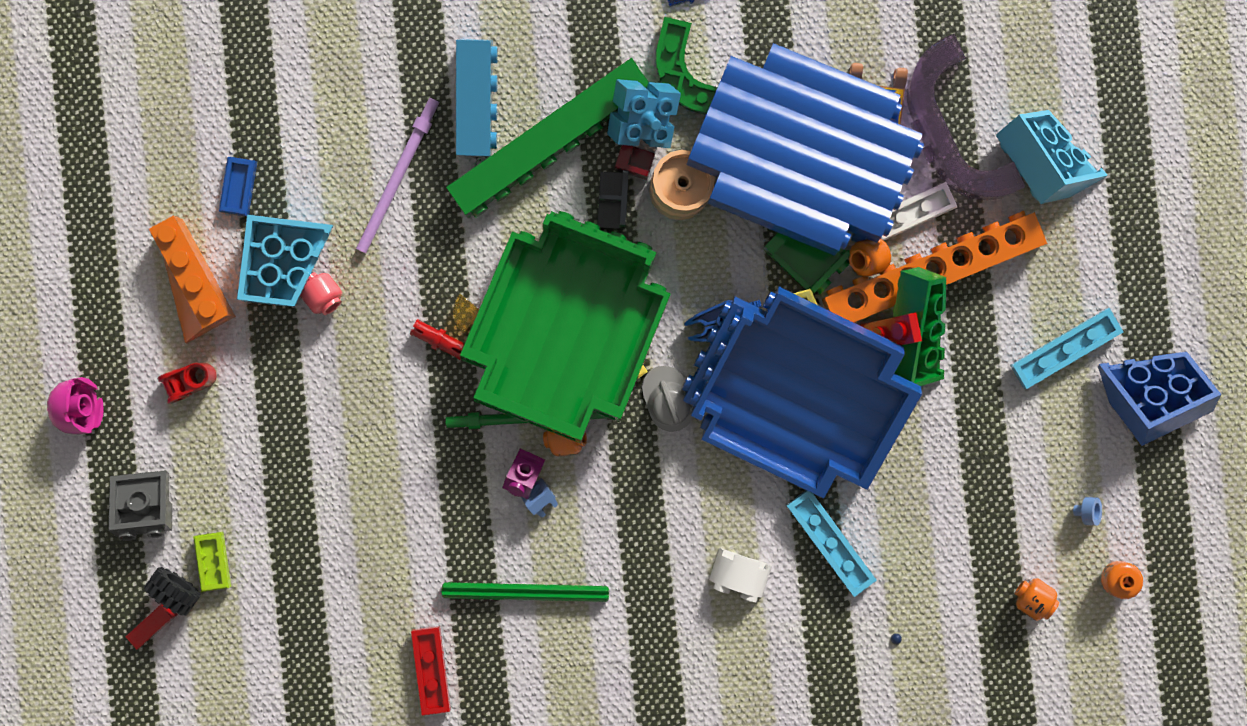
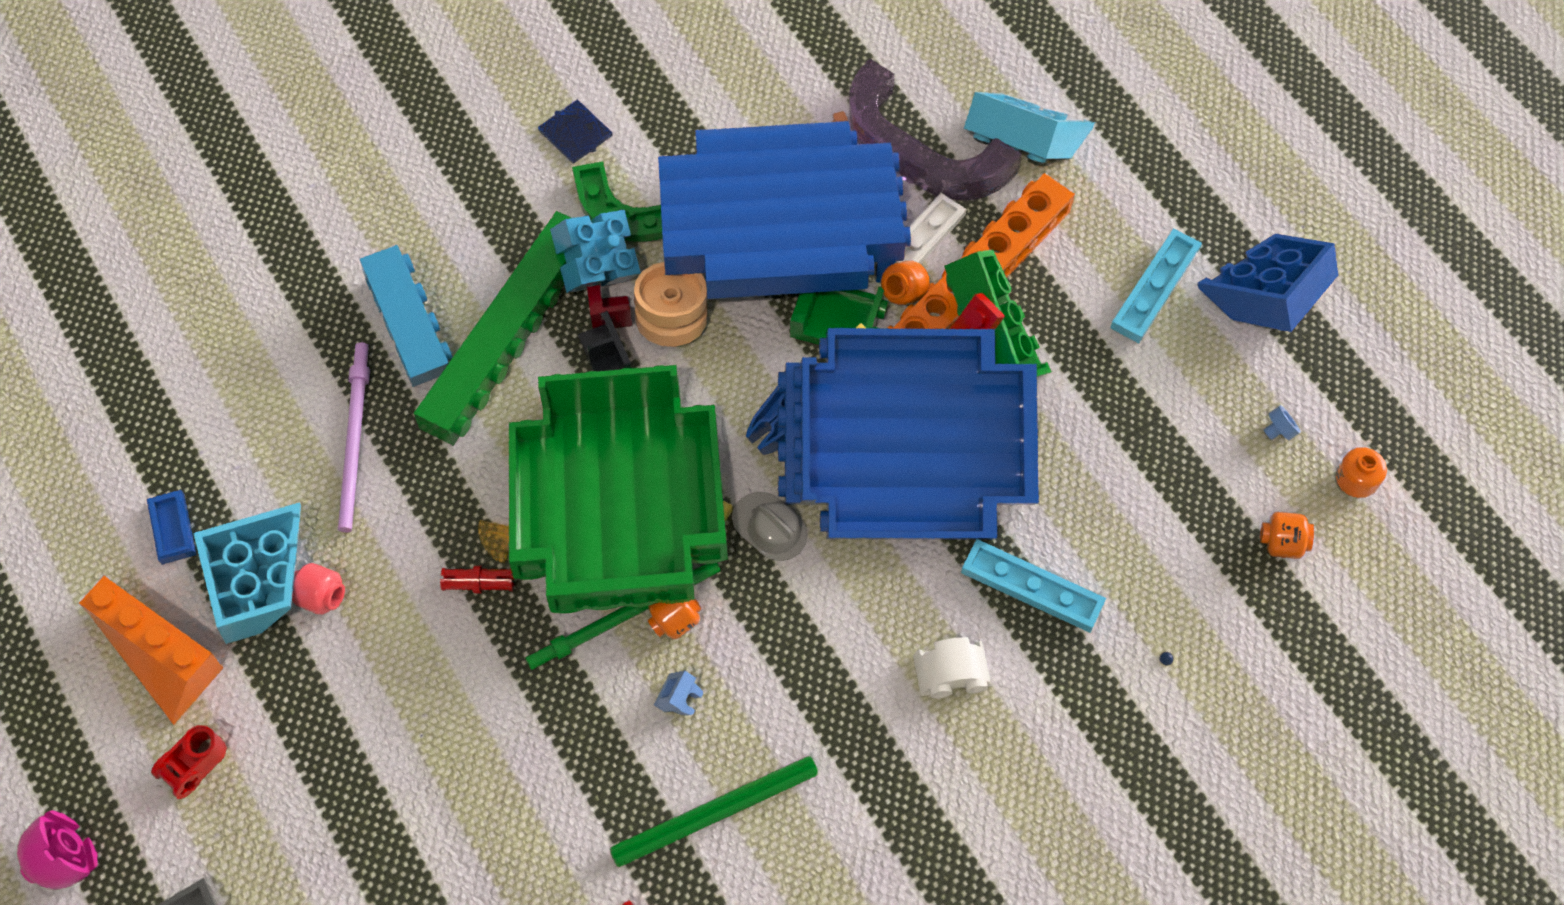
camera: 30 degrees left, 25 degrees down
(523, 474) = (645, 671): magenta brick -> none

